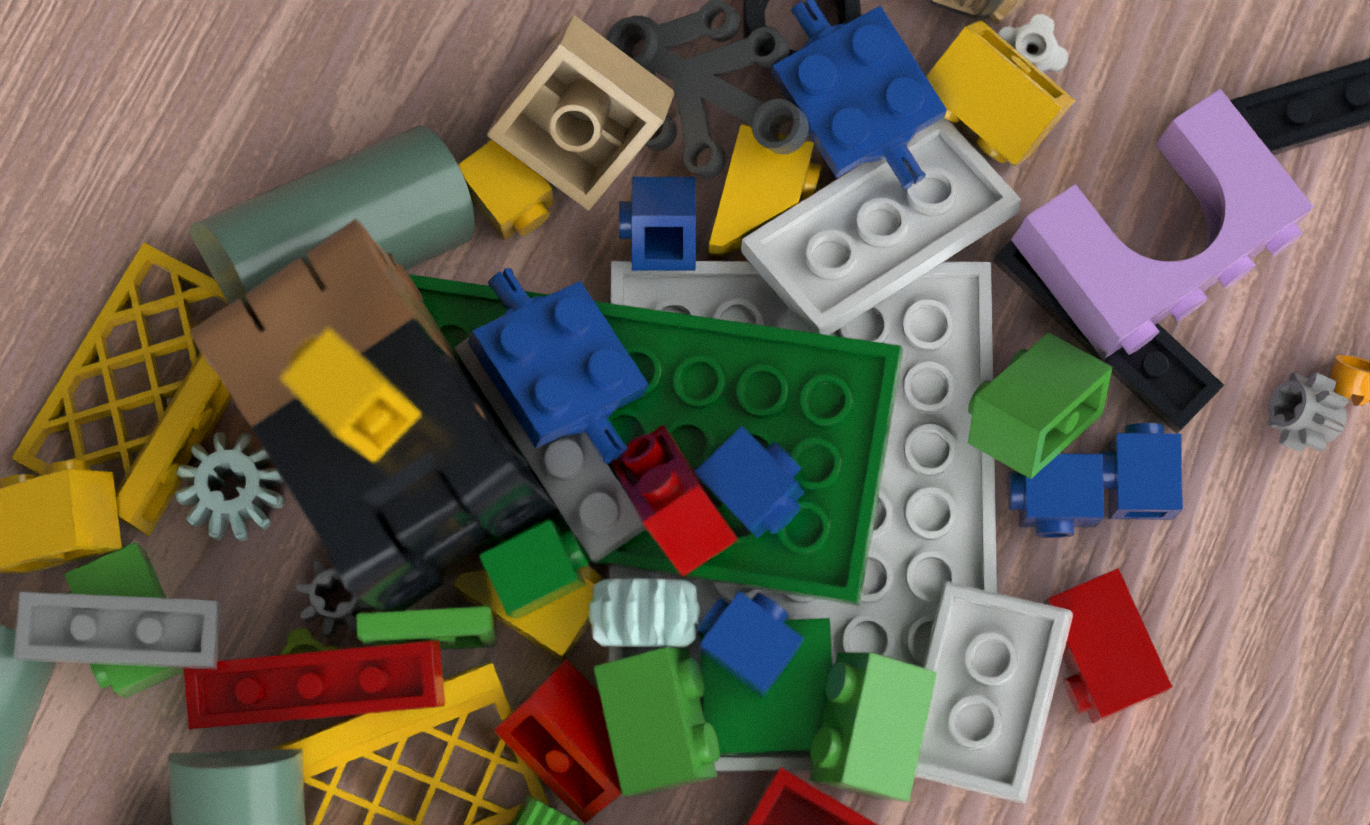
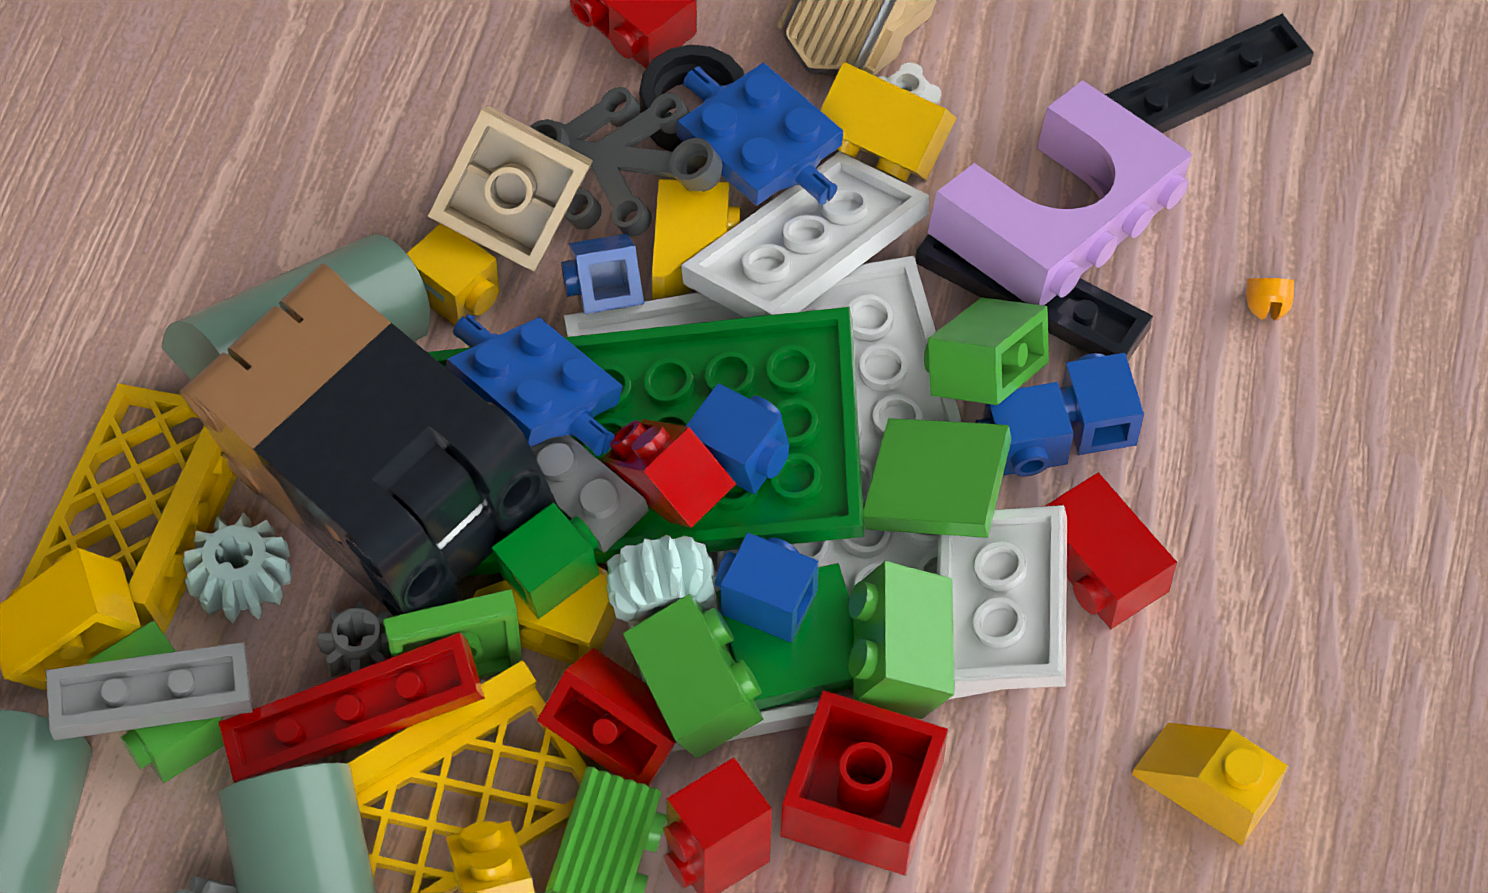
camera: 10 degrees left, 20 degrees down
(349, 394) = (346, 372): yellow brick -> none
(951, 544) = (937, 477): none -> bright green tile
(1307, 412) = (1234, 323): light grey gear -> none

